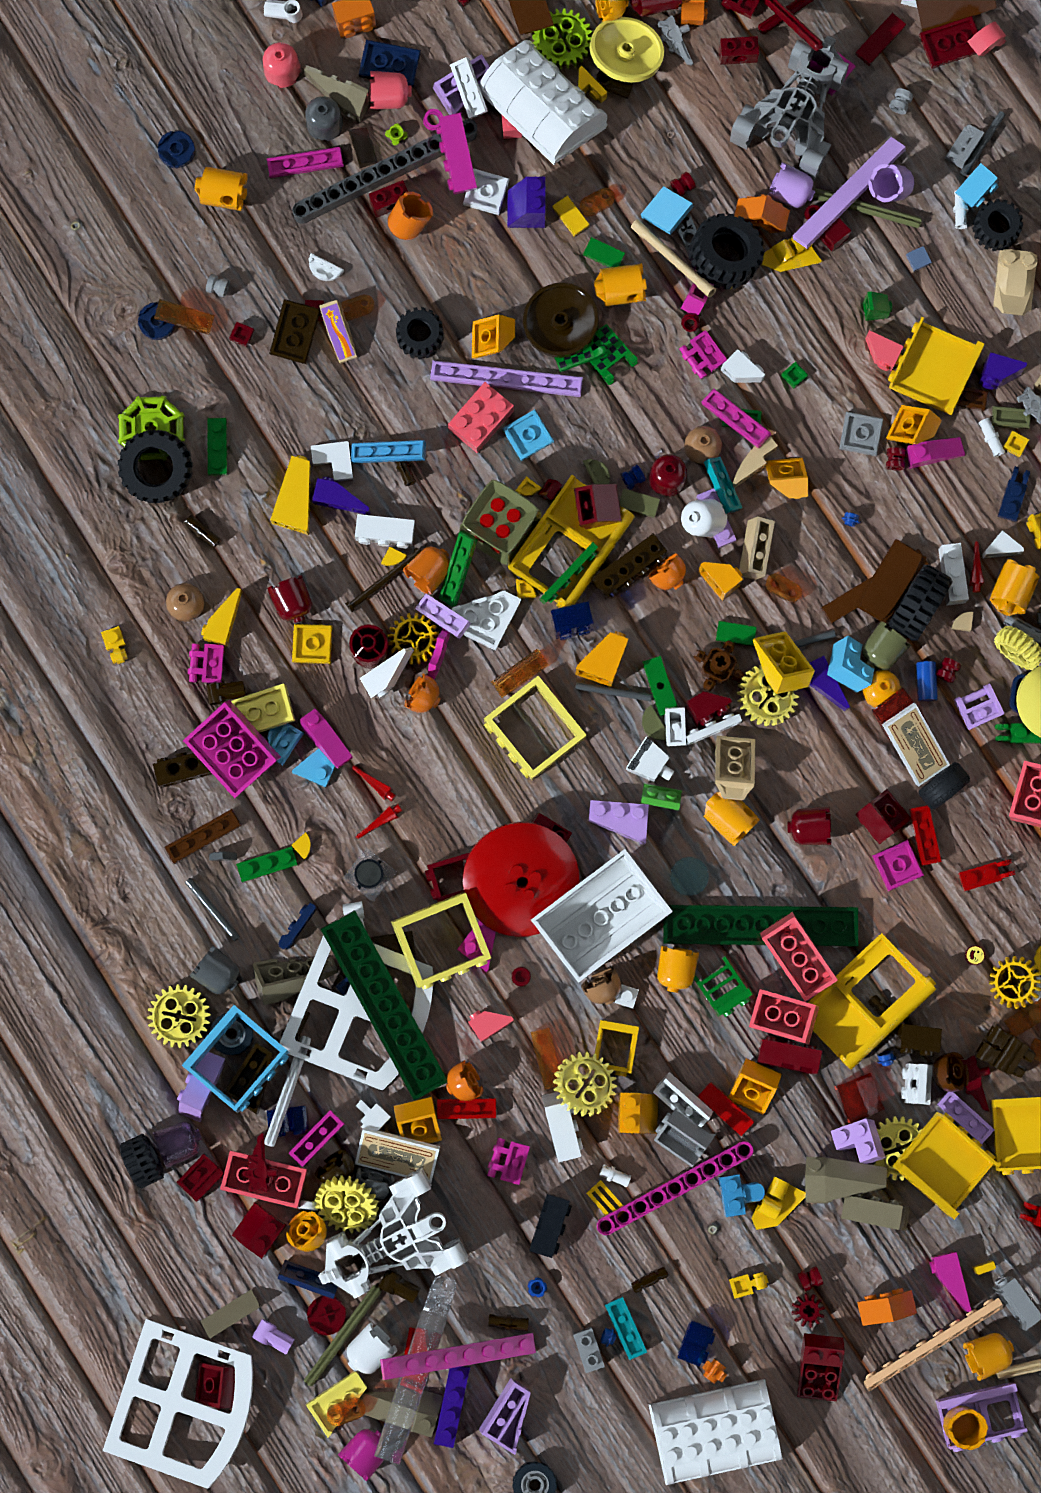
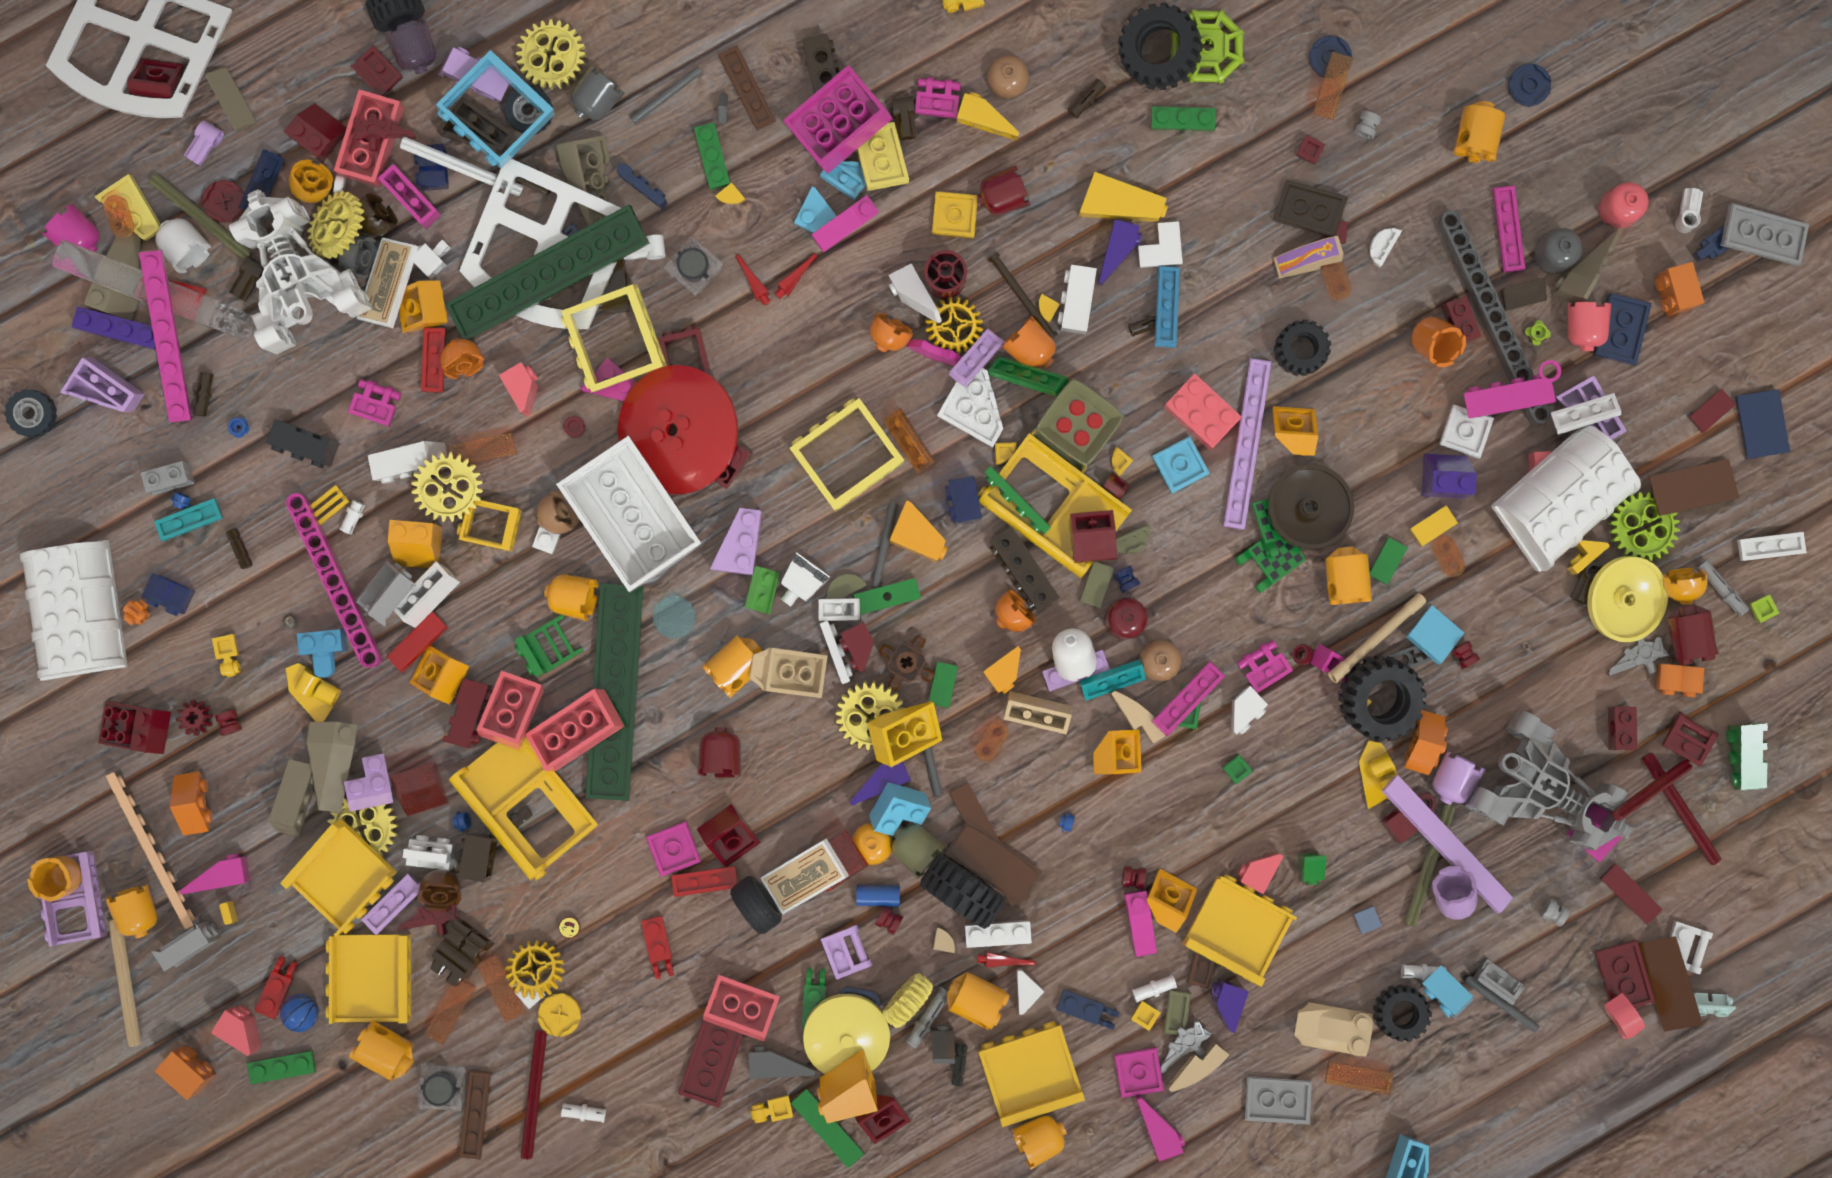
camera: 90 degrees right, 5 degrees up
(861, 433) = (1165, 840): light grey tile -> none

